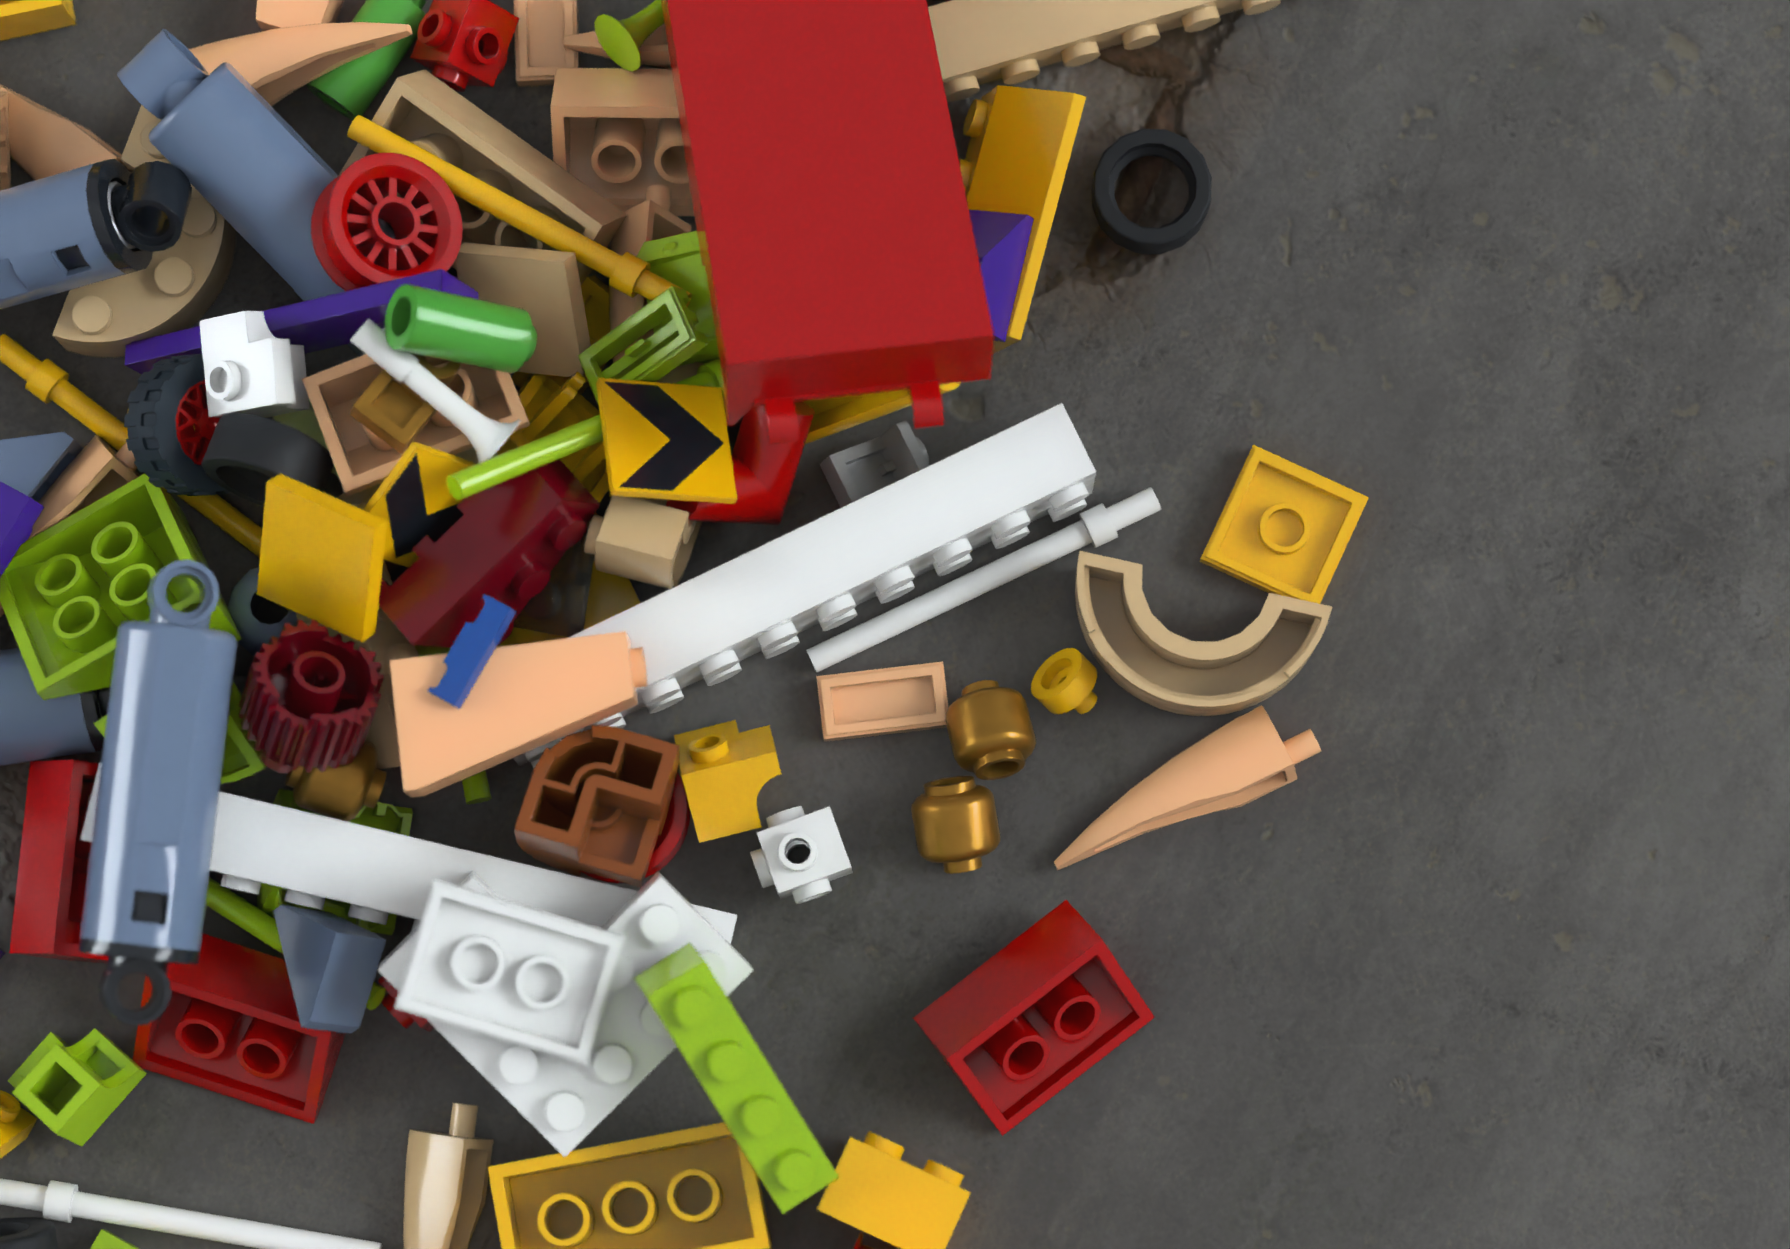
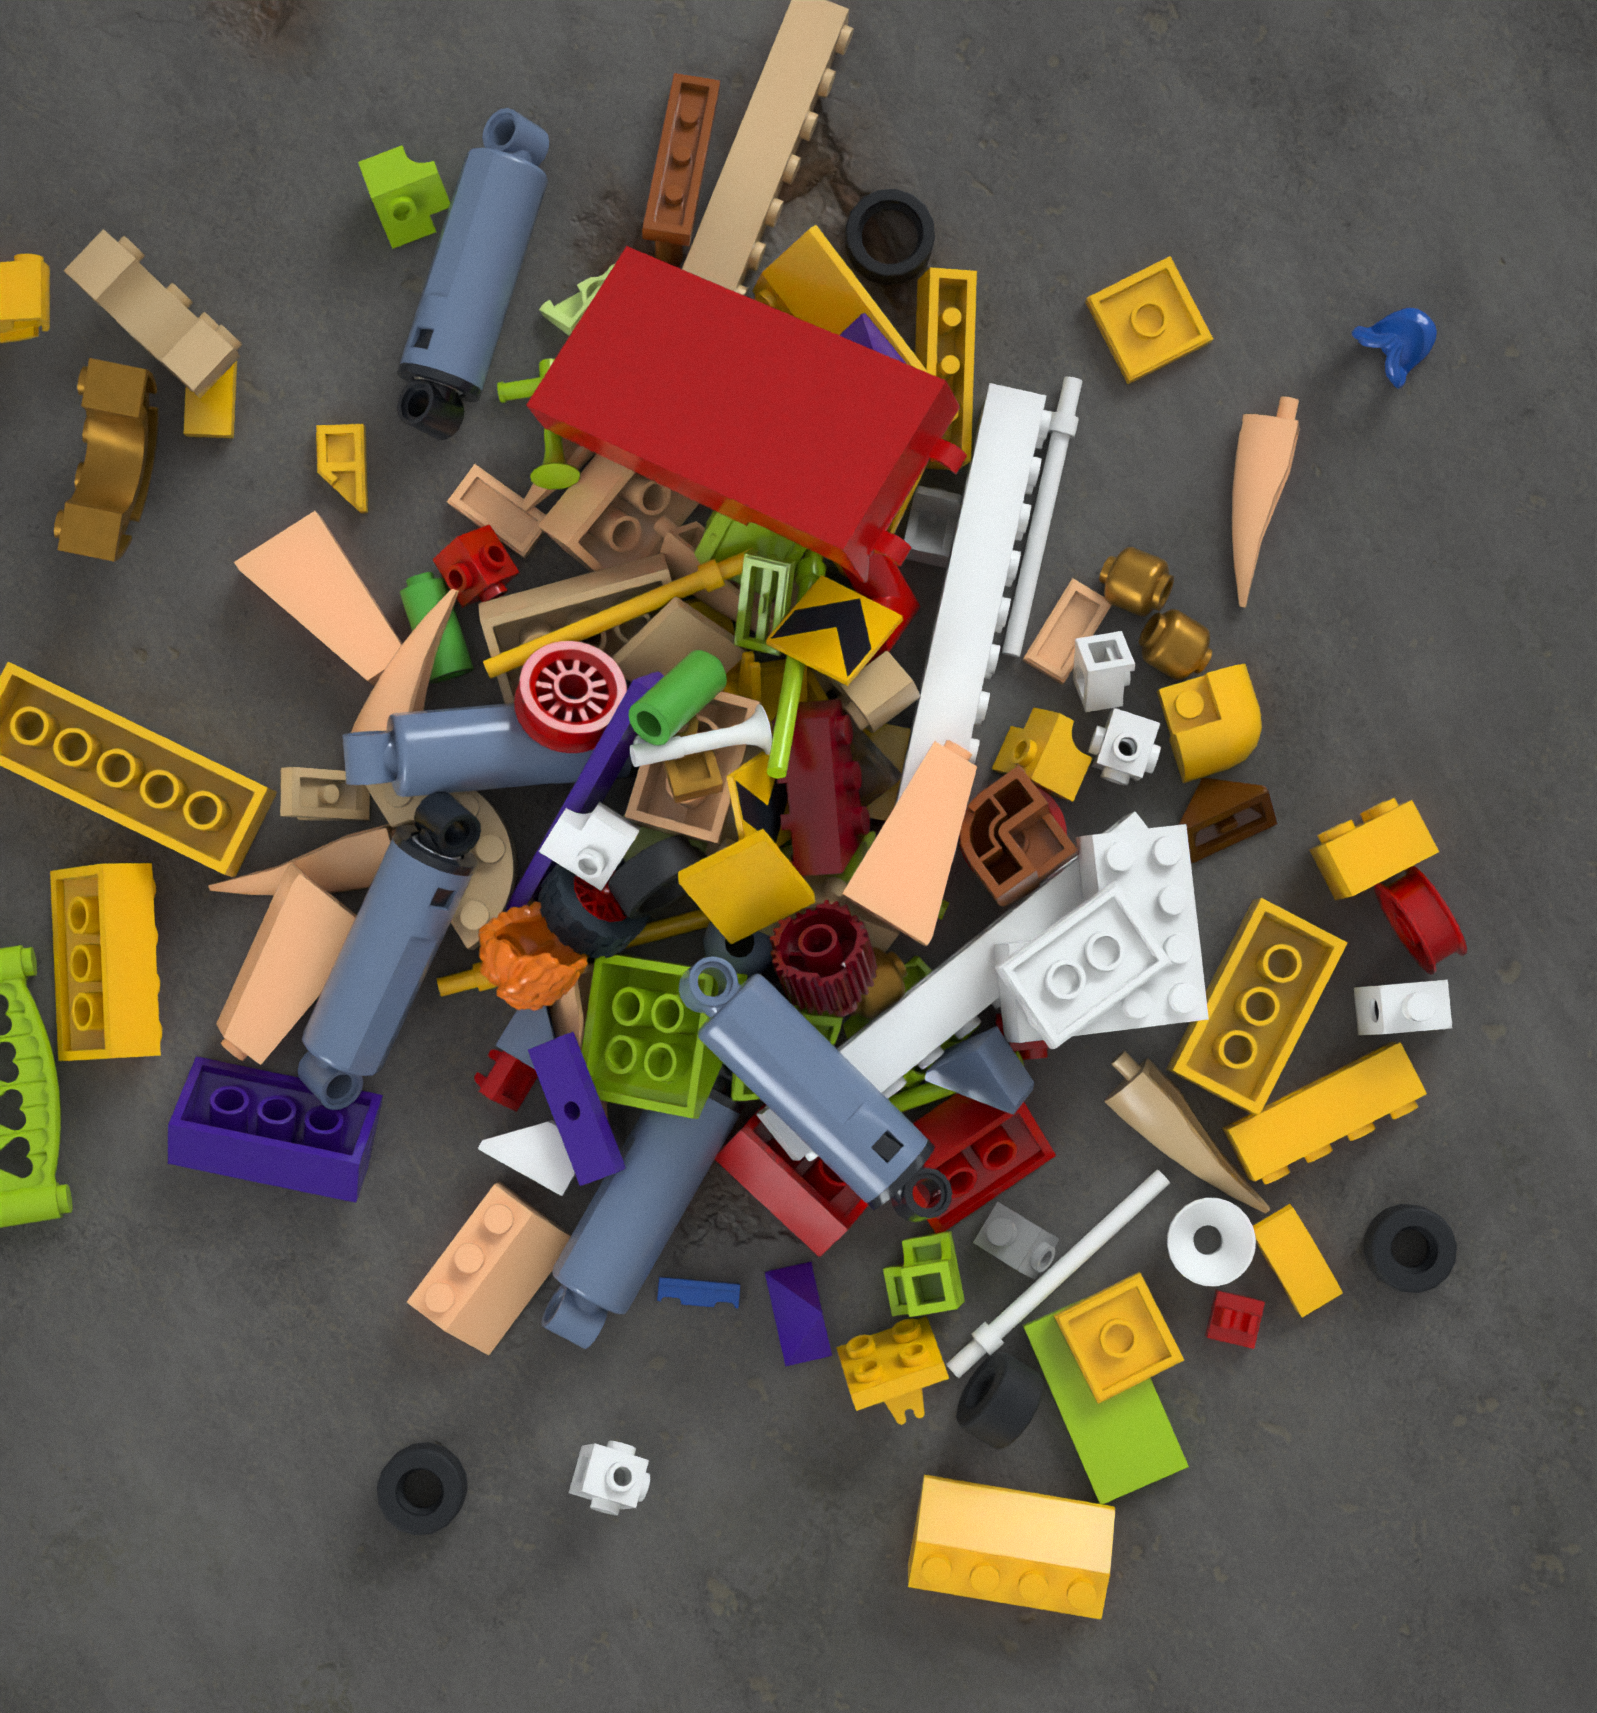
camera: 60 degrees left, 5 degrees up
(81, 400) = (527, 959): none -> orange hair
(92, 57) = (322, 795): none -> tan slope
(187, 1152) = (1017, 1241): none -> light grey bracket
(472, 652) = (876, 840): blue piece -> none
(736, 1077) = (1244, 881): lime brick -> none
(813, 1018) = (1225, 814): none -> reddish brown slope
(864, 765) = (1102, 670): none -> white brick
(906, 927) = (1212, 721): none -> yellow brick
(1034, 1017) = (1323, 687): red slope -> none
(1057, 350) = (948, 343): none -> yellow brick
(1065, 682) = (1141, 516): yellow tile -> none
(1184, 673) = (1178, 454): tan brick -> none
(1479, 809) = (1403, 337): none -> blue piece

